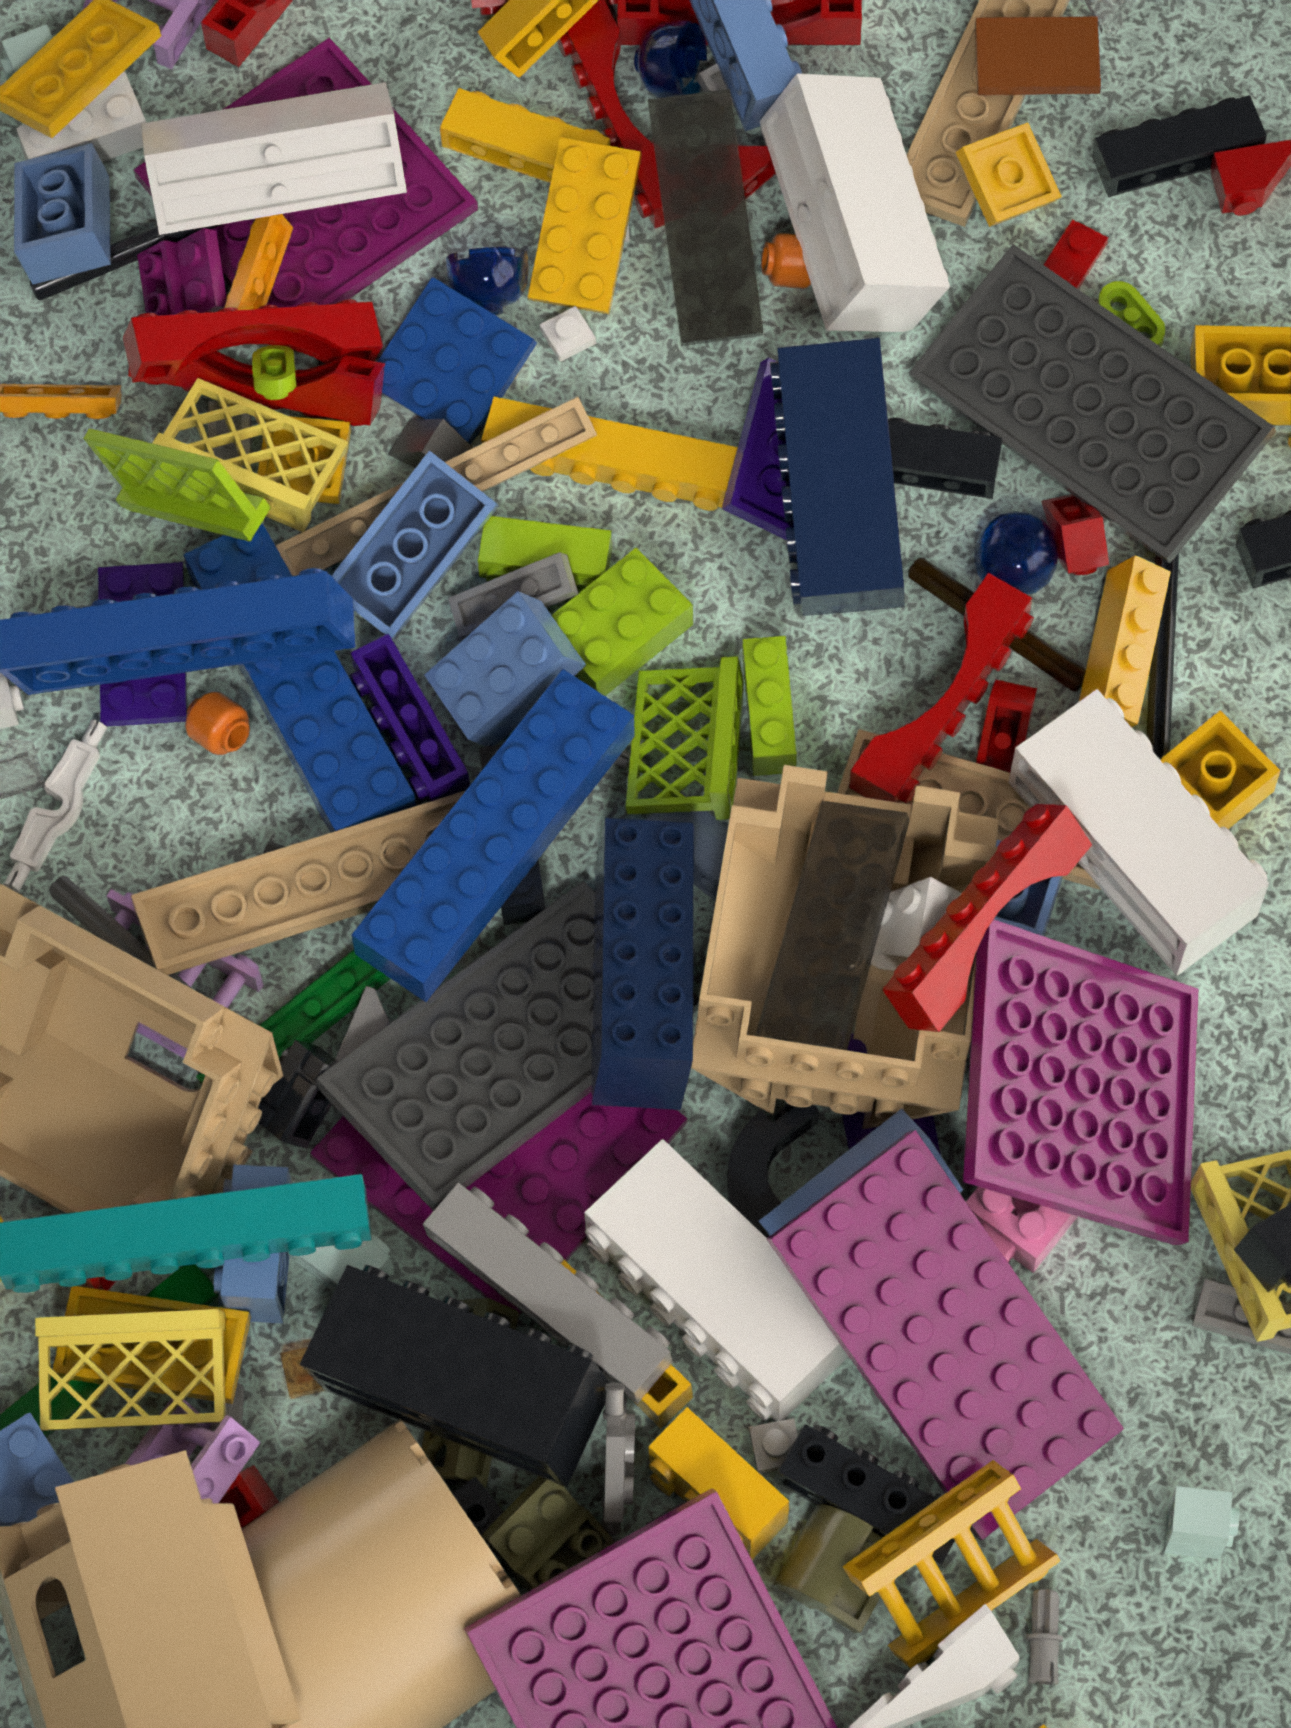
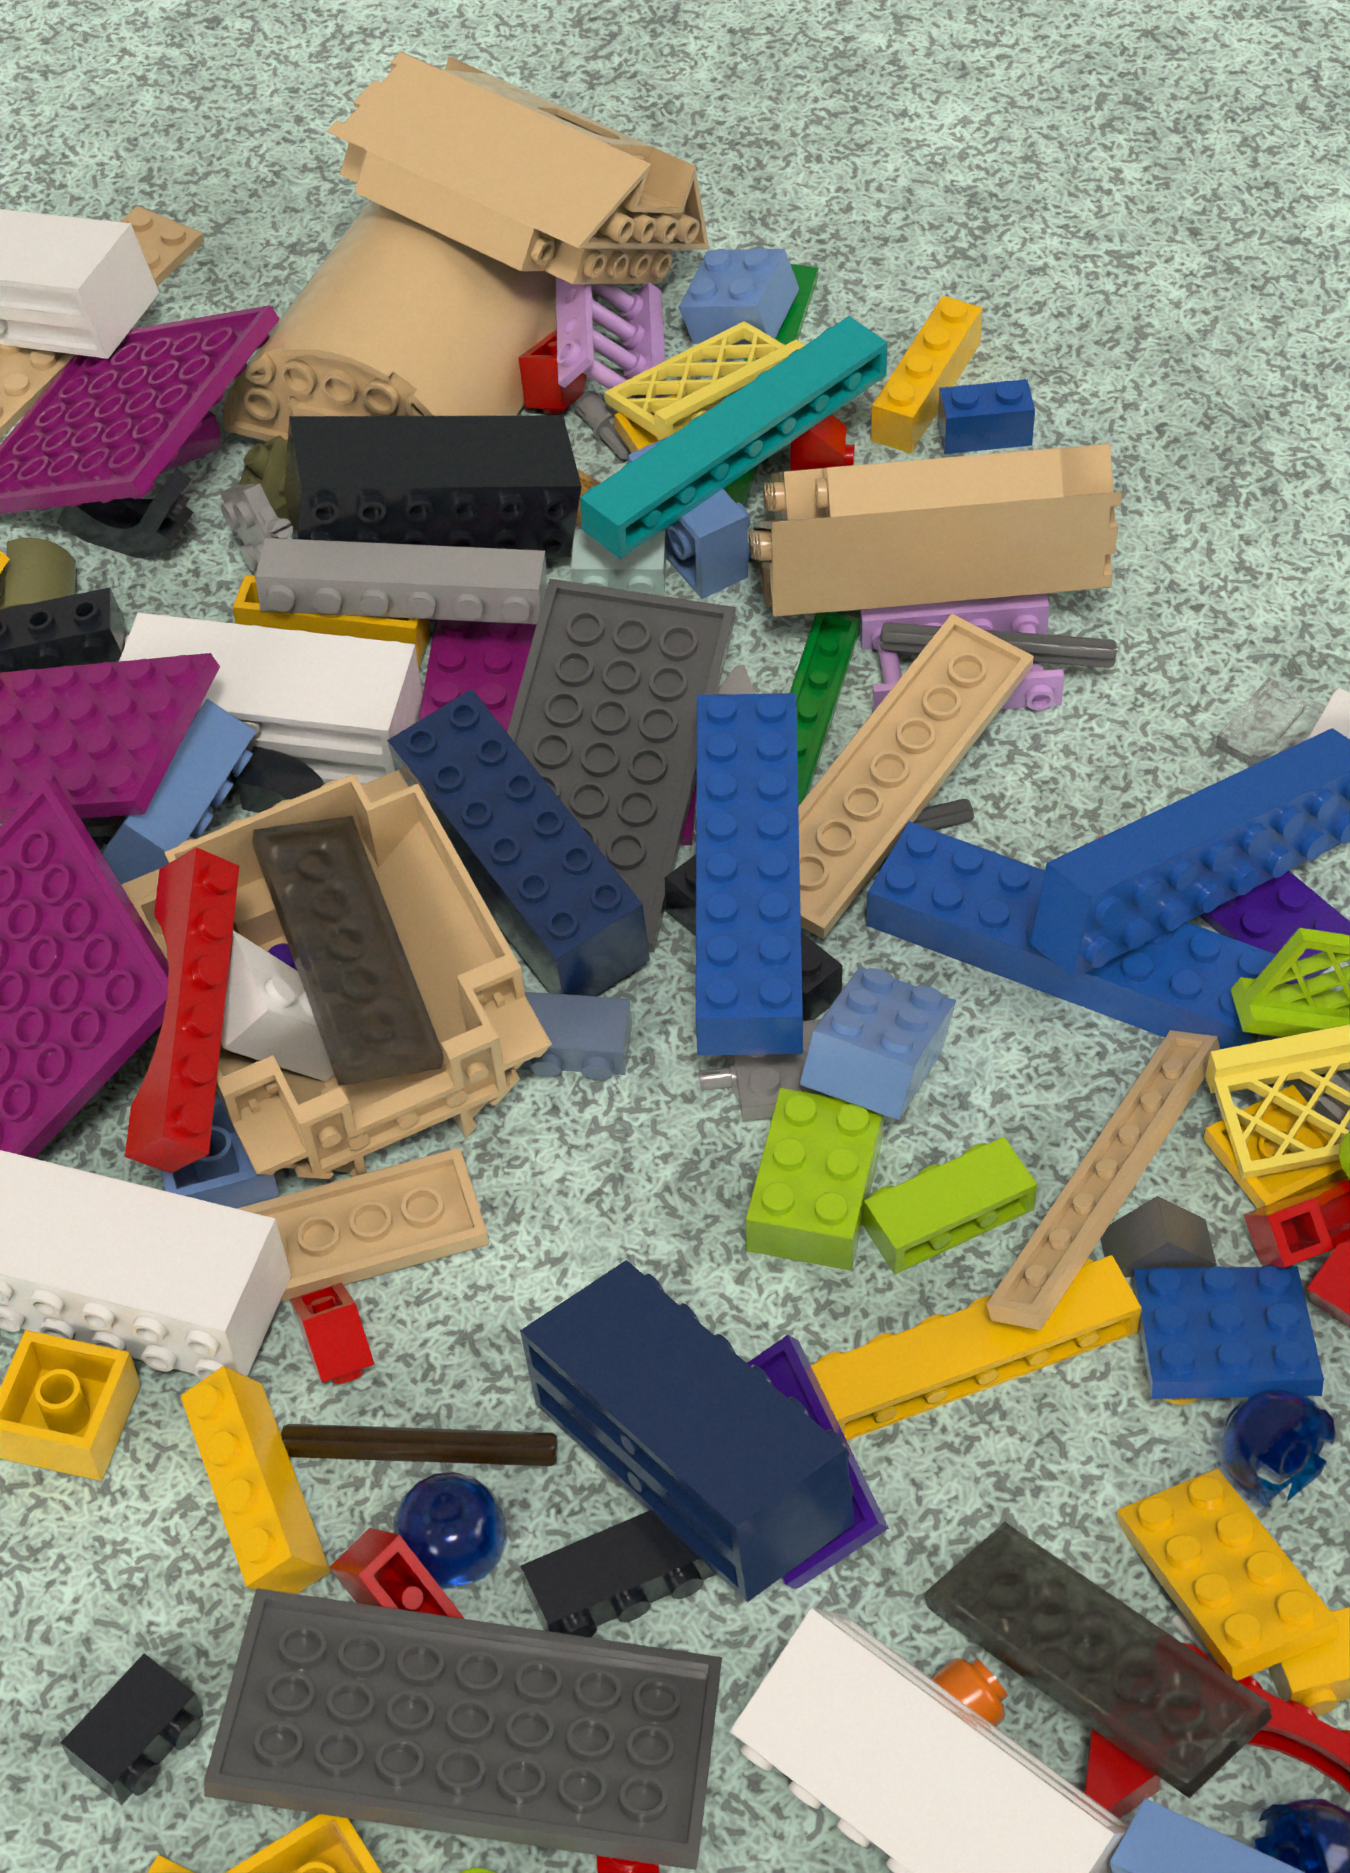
camera: 145 degrees right, 15 degrees down
(46, 825) = (1181, 717): white piece -> none
(295, 1103) = (754, 633): black brick -> none
(409, 721) = (983, 979): dark purple brick -> none
(413, 544) = (1074, 1092): medium blue brick -> none
(544, 580) = (938, 1131): light grey plate -> none
(567, 334) = (1139, 1462): white plate -> none
(693, 1459) = (163, 568): yellow brick -> none
(721, 747) = (610, 1119): lime fence -> none
(769, 704) = (596, 1195): lime brick -> none
(897, 758) = (414, 1395): red arch -> none
(1163, 667) = (194, 1496): black axle -> none

